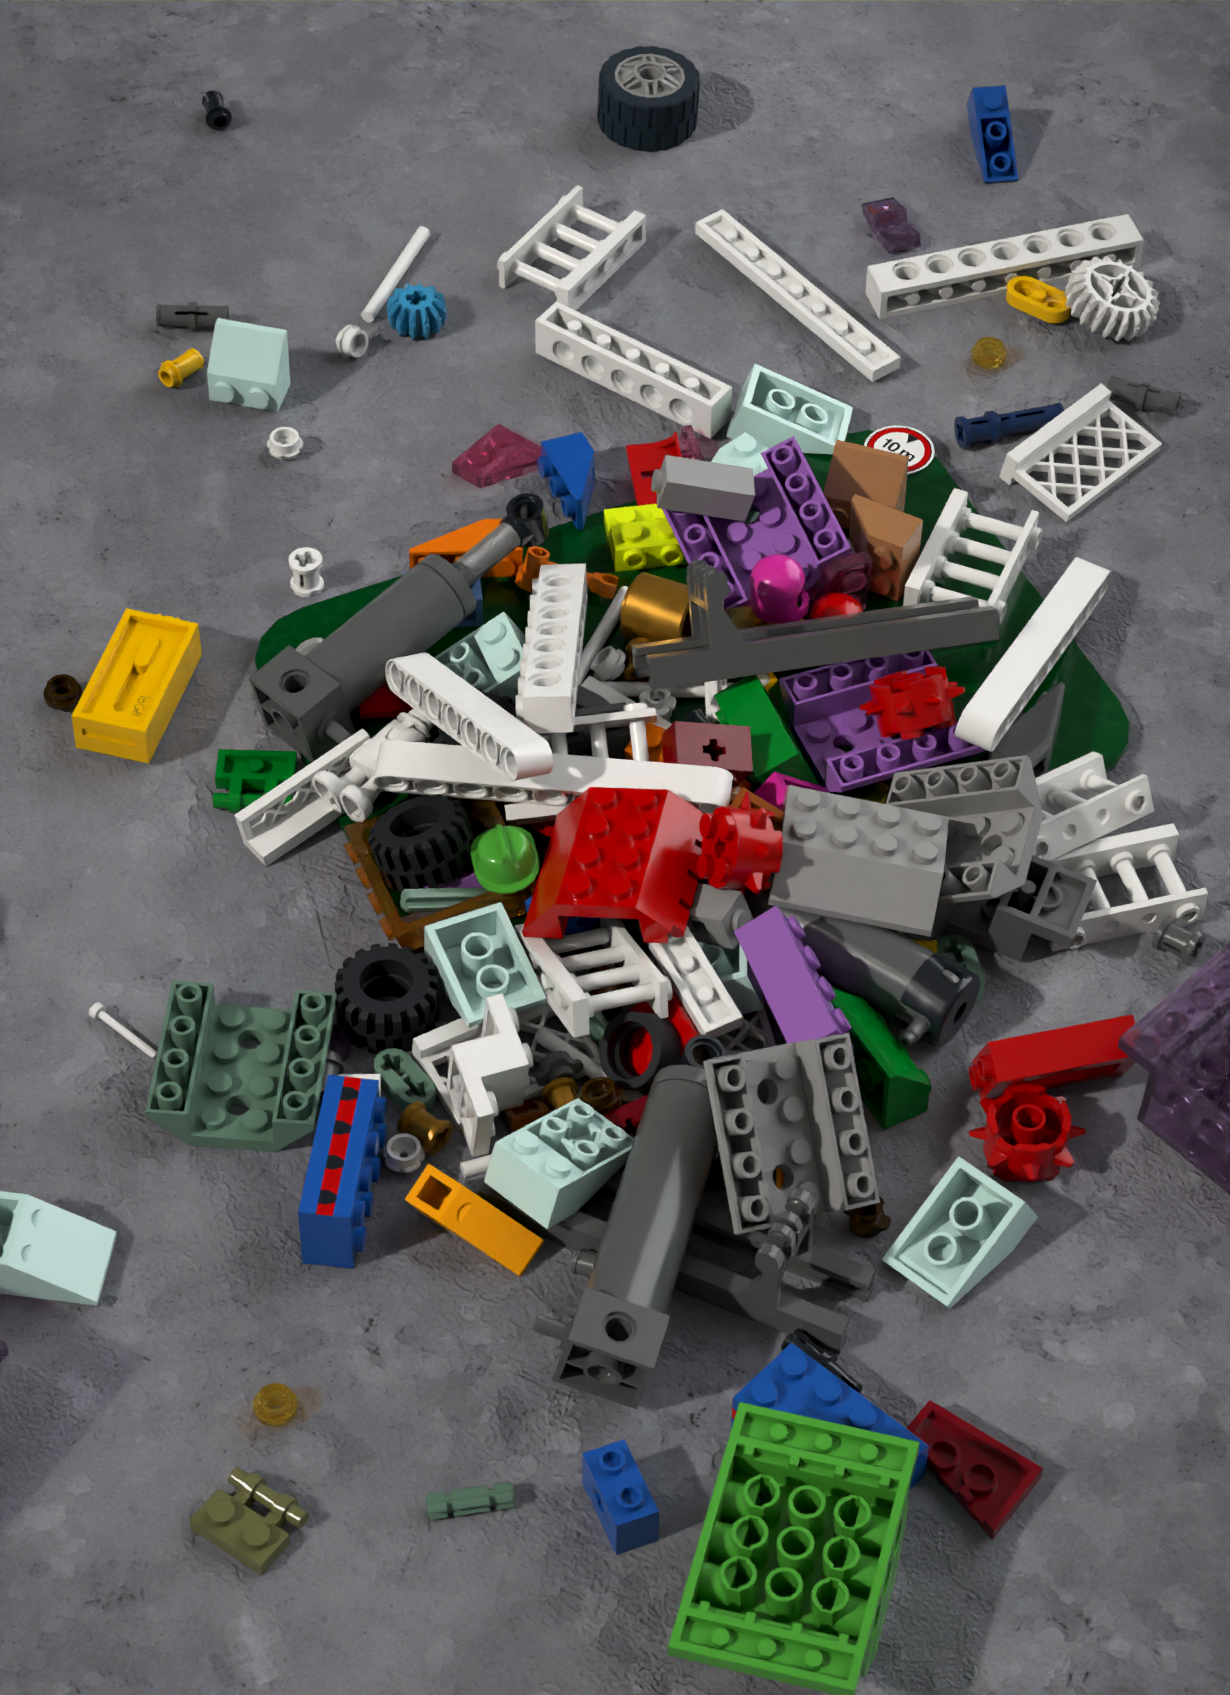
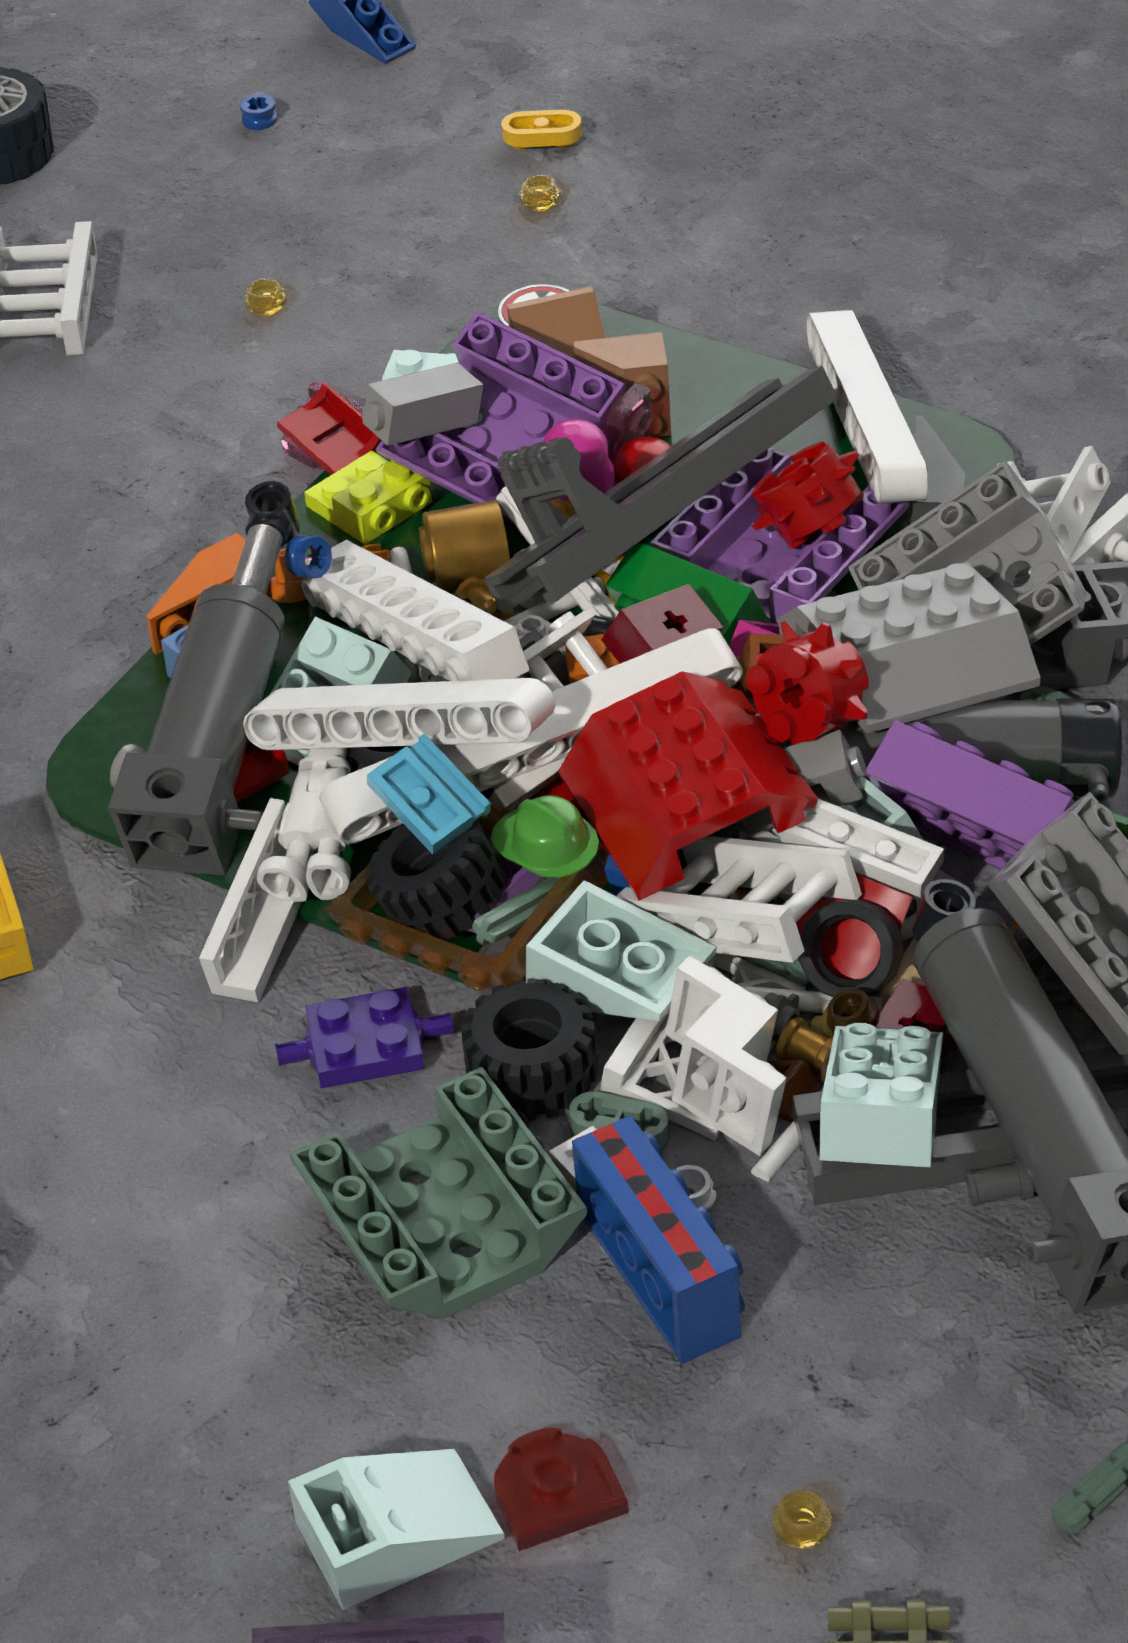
camera: 30 degrees left, 5 degrees down
(98, 1012) = (214, 1241): white piece -> none
(154, 1292) = (555, 1487): none -> clear red tile
(250, 771) = (162, 914): green plate -> none
(302, 929) = (364, 1037): none -> dark purple plate
(306, 572) = (42, 700): white bush -> none
(425, 1127) = (690, 1149): pearl gold bush -> none
(437, 784) = (428, 794): none -> medium azure plate
(473, 1220) = (835, 1208): light orange slope -> none
(496, 457) = (138, 503): clear pink wing -> none
(525, 558) = (320, 556): none -> blue bush
(570, 469) = (225, 471): blue slope -> none
(633, 369) = (208, 358): white brick -> none
(722, 338) = (265, 297): none -> clear yellow plate
(780, 408) = (378, 322): light aqua slope -> none
(798, 295) = (304, 227): white plate -> none
(853, 179) = (258, 111): none -> blue bush
(890, 225) = (330, 133): clear purple slope -> none
(945, 539) = (684, 383): white fence -> none
(987, 267) = (472, 119): white brick -> none
(993, 425) = (609, 248): dark blue pin -> none
(1065, 429) = (685, 228): white fence -> none
(1112, 298) = (616, 93): white gear -> none
(1143, 396) = (721, 161): dark grey pin -> none

